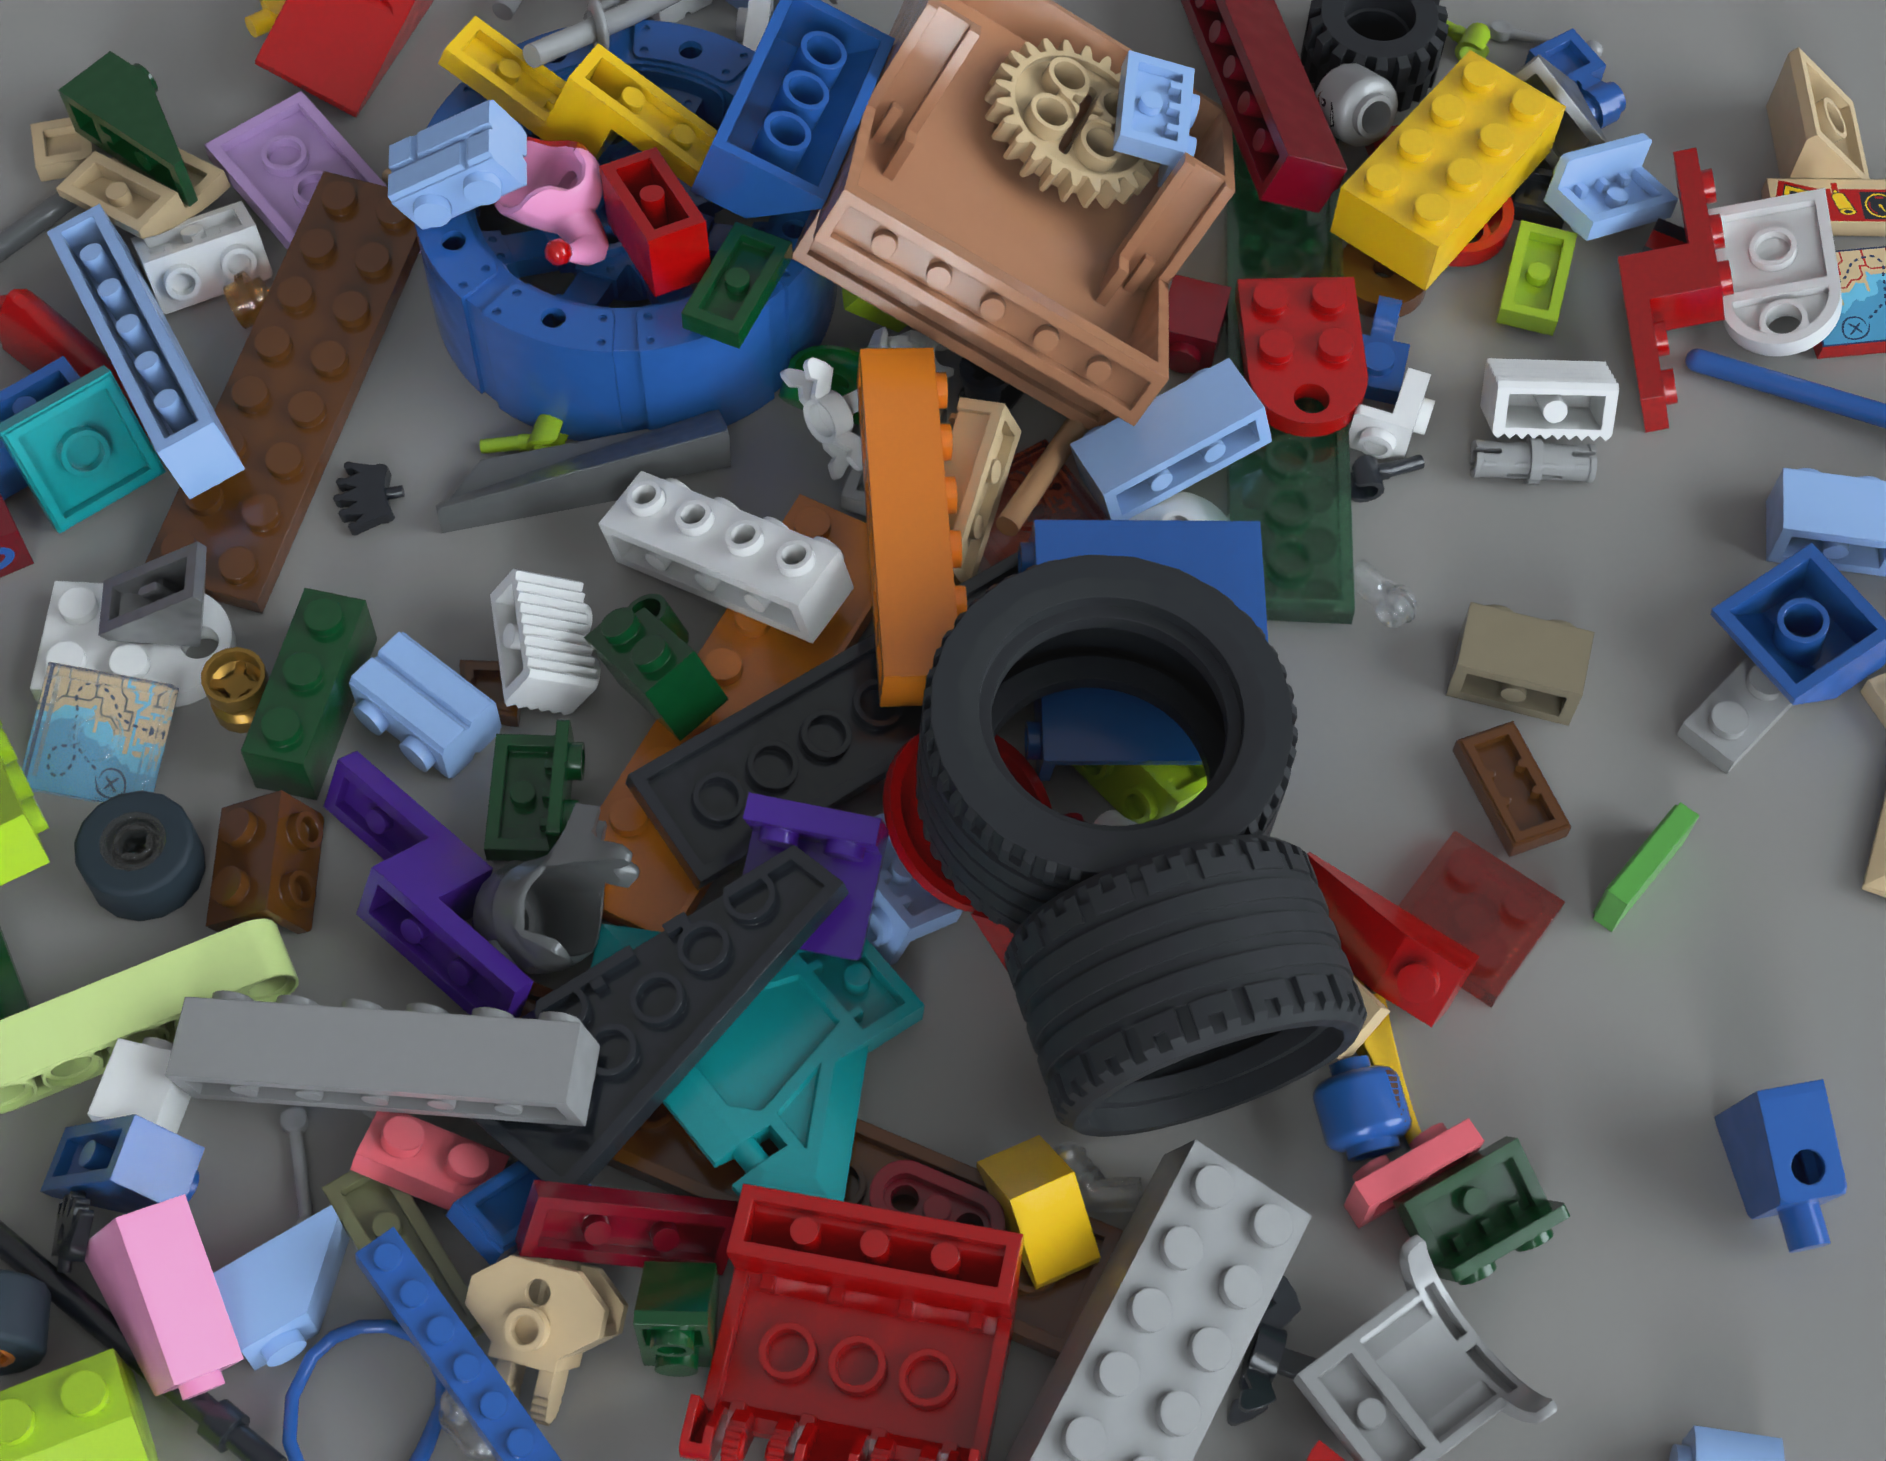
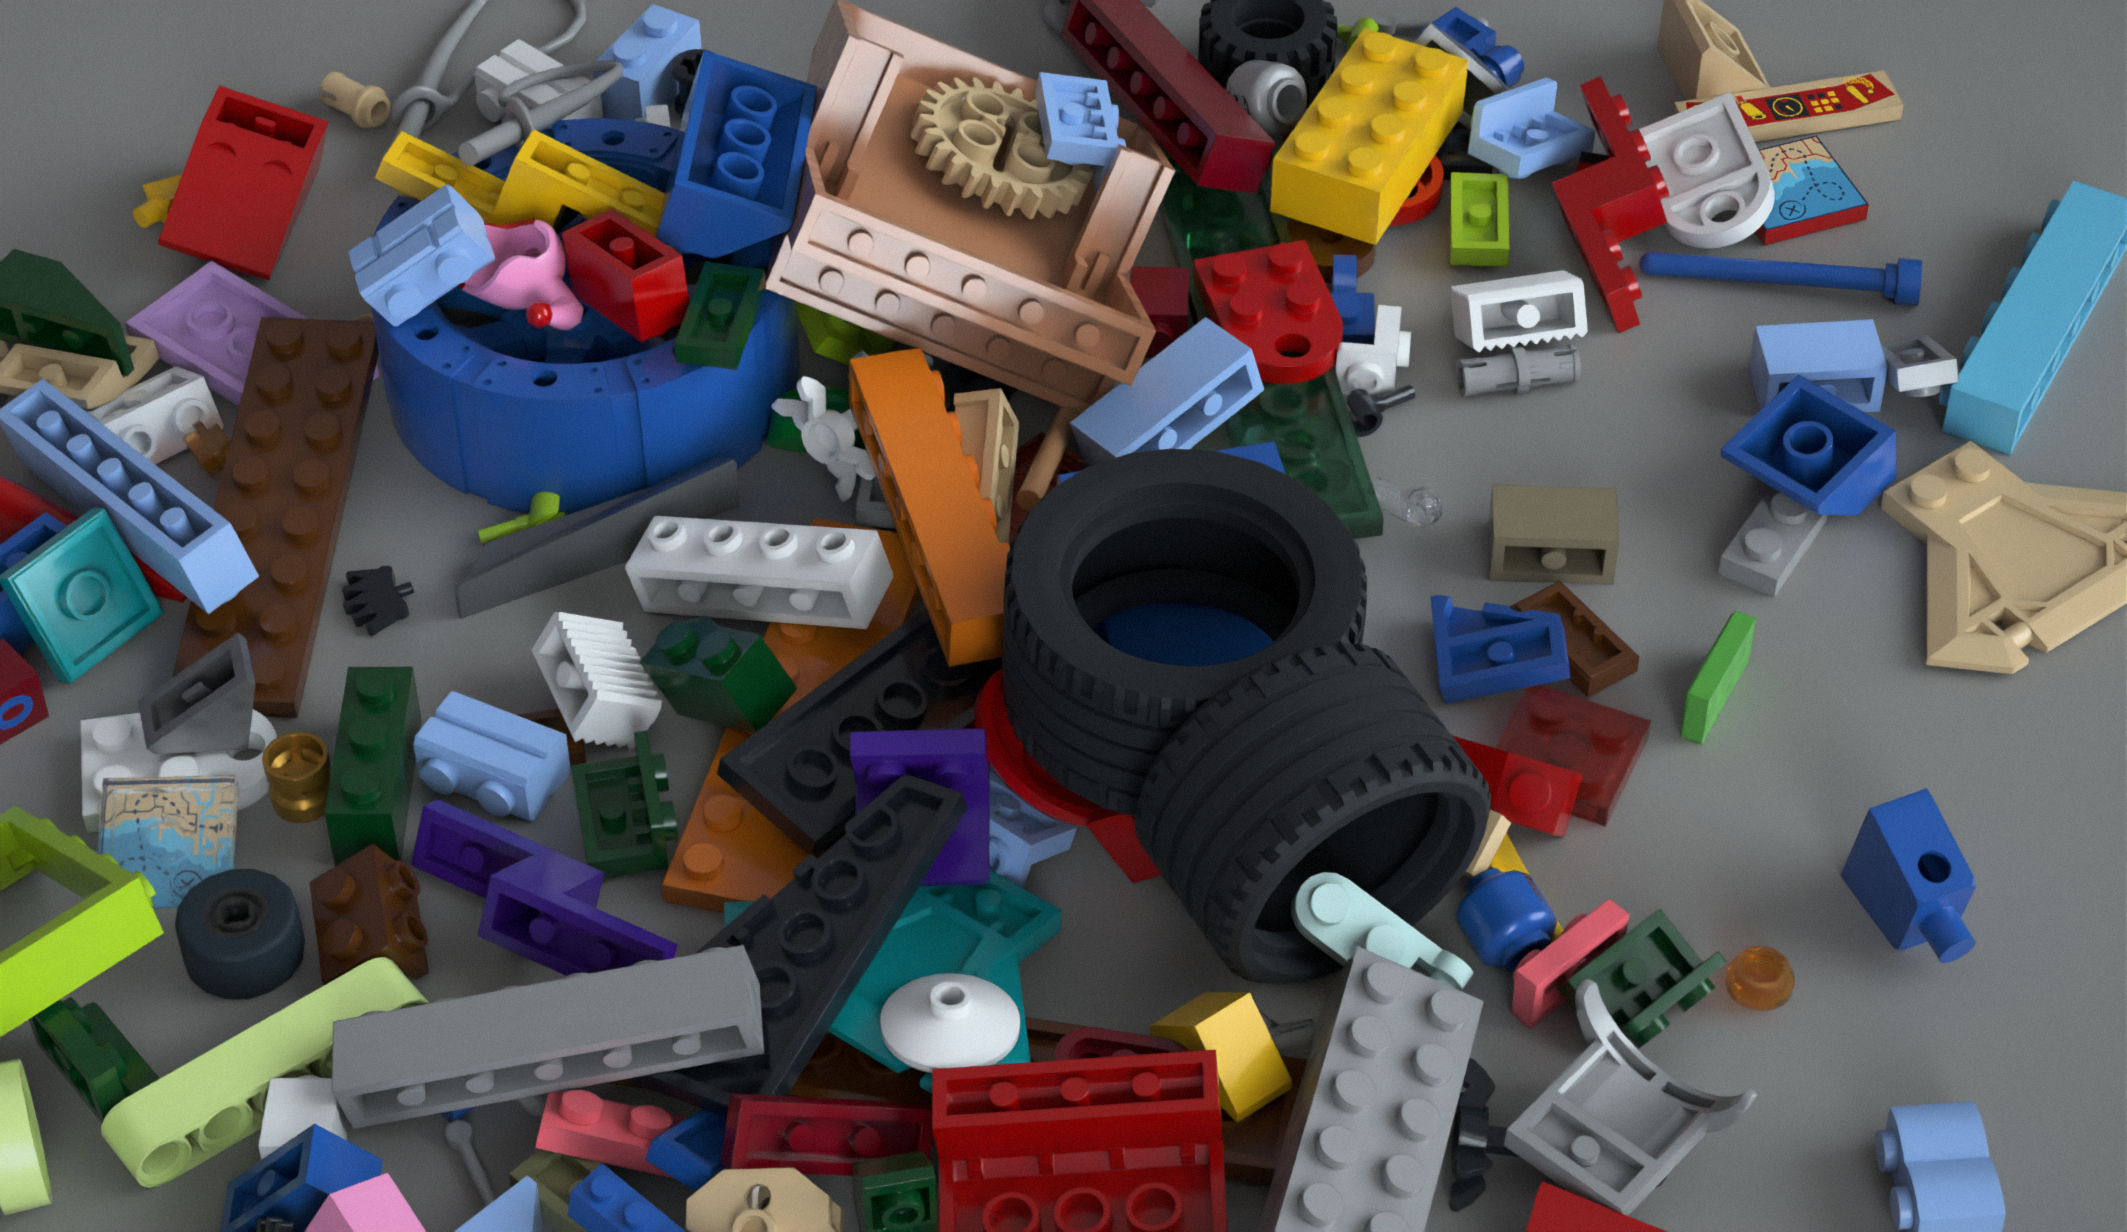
camera: 10 degrees left, 15 degrees down
(552, 907) = (678, 880): dark grey piece -> none
(774, 1151) = (949, 1022): none -> white dish
(1227, 1117) = (1343, 916): none -> light aqua plate
(1428, 788) = (1495, 649): none -> blue wing
(1601, 1230) = (1760, 978): none -> clear orange plate

